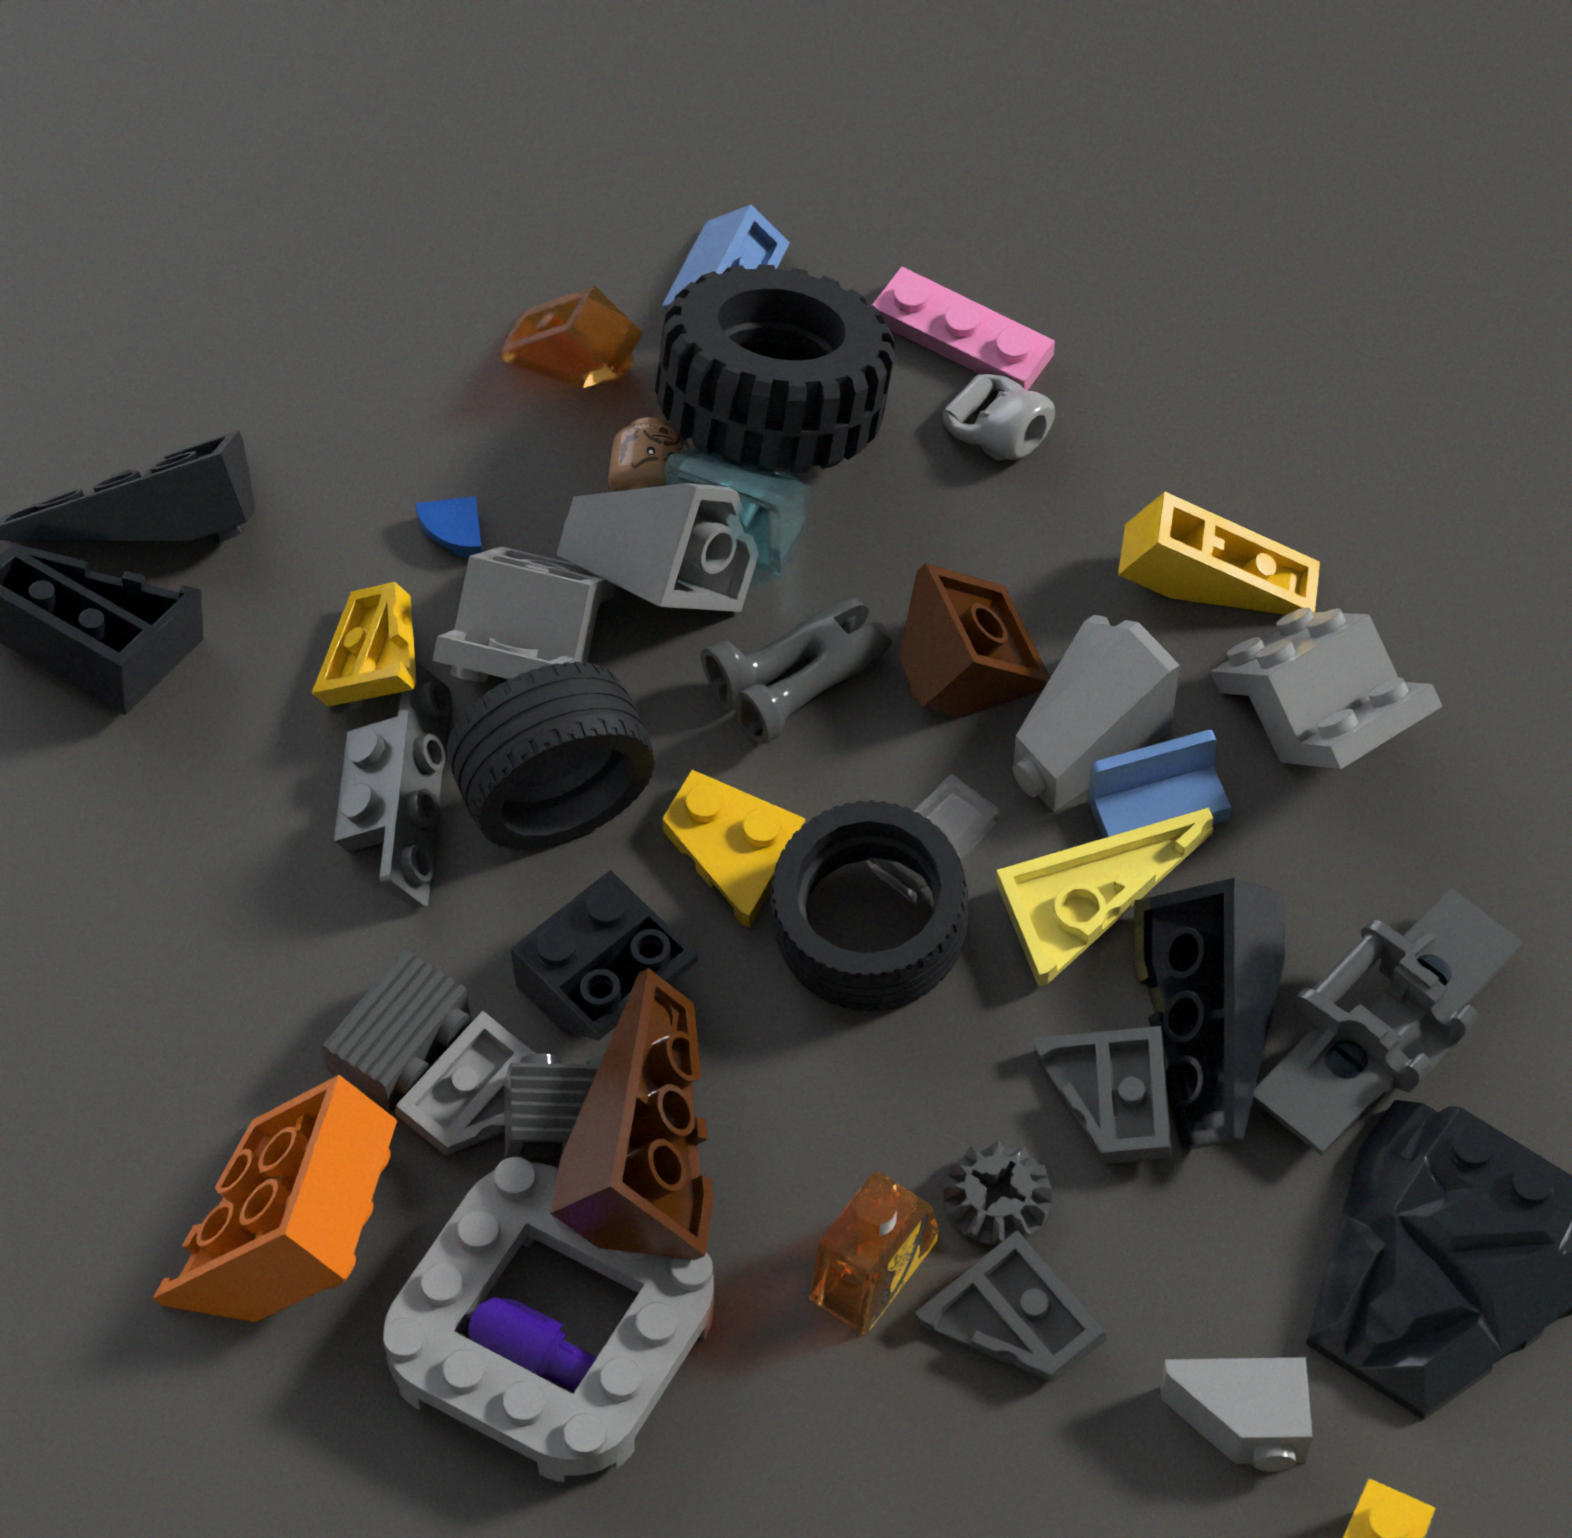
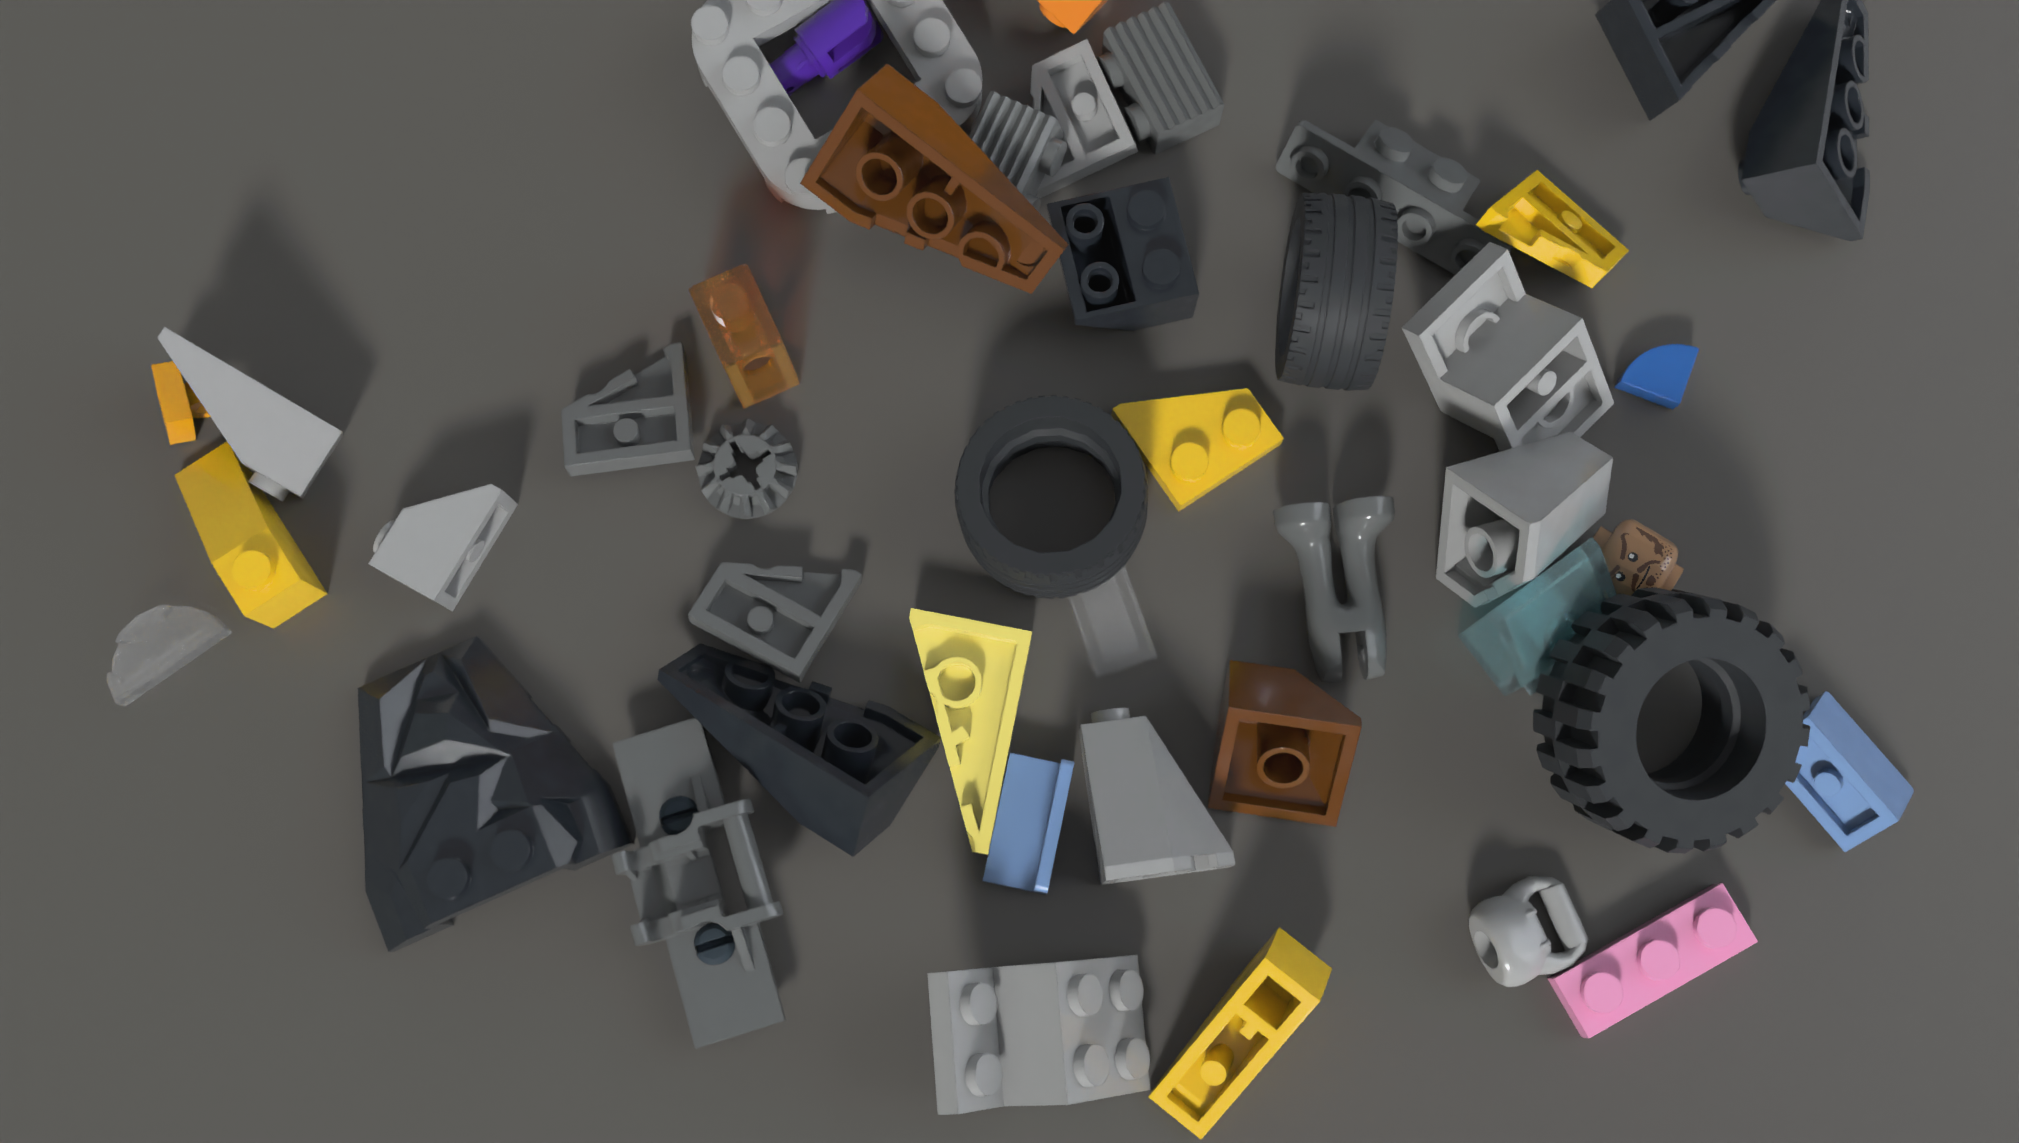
camera: 120 degrees right, 20 degrees up
(574, 339) = (1817, 577): clear orange slope -> none

